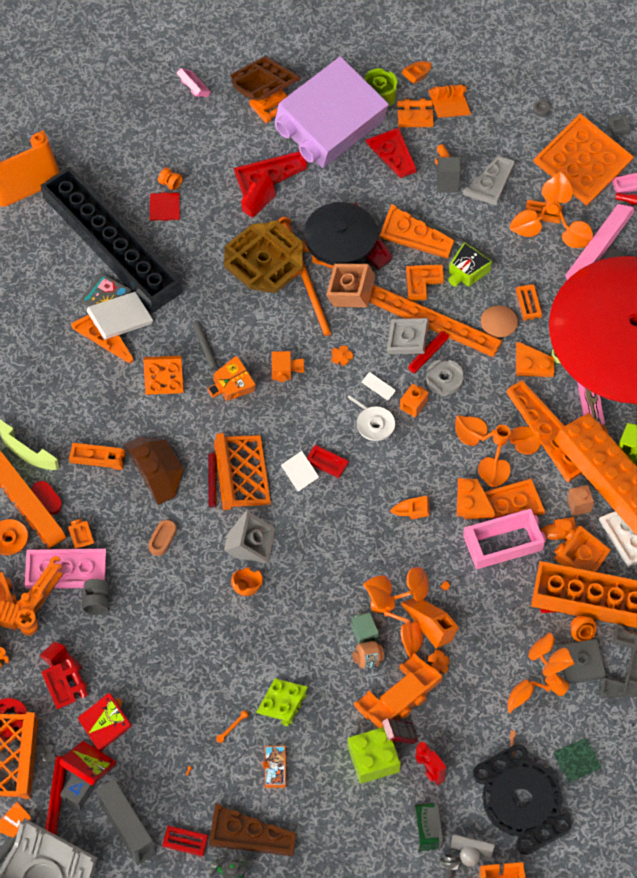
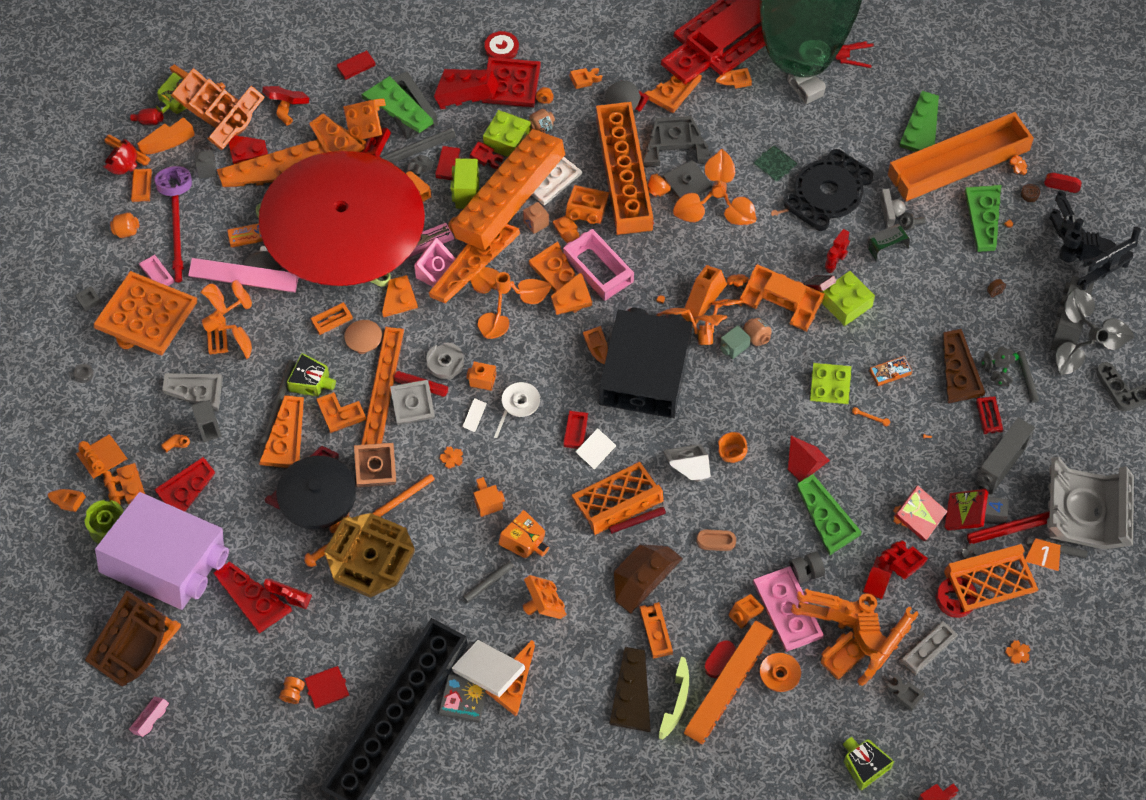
camera: 110 degrees left, 0 degrees up
(46, 417) = (631, 695): none -> dark brown wing
(136, 641) = (829, 518): none -> bright green wing
(210, 645) = (804, 459): none -> red slope
(368, 534) = (645, 362): none -> black brick
(557, 396) = (433, 263): none -> bright pink slope

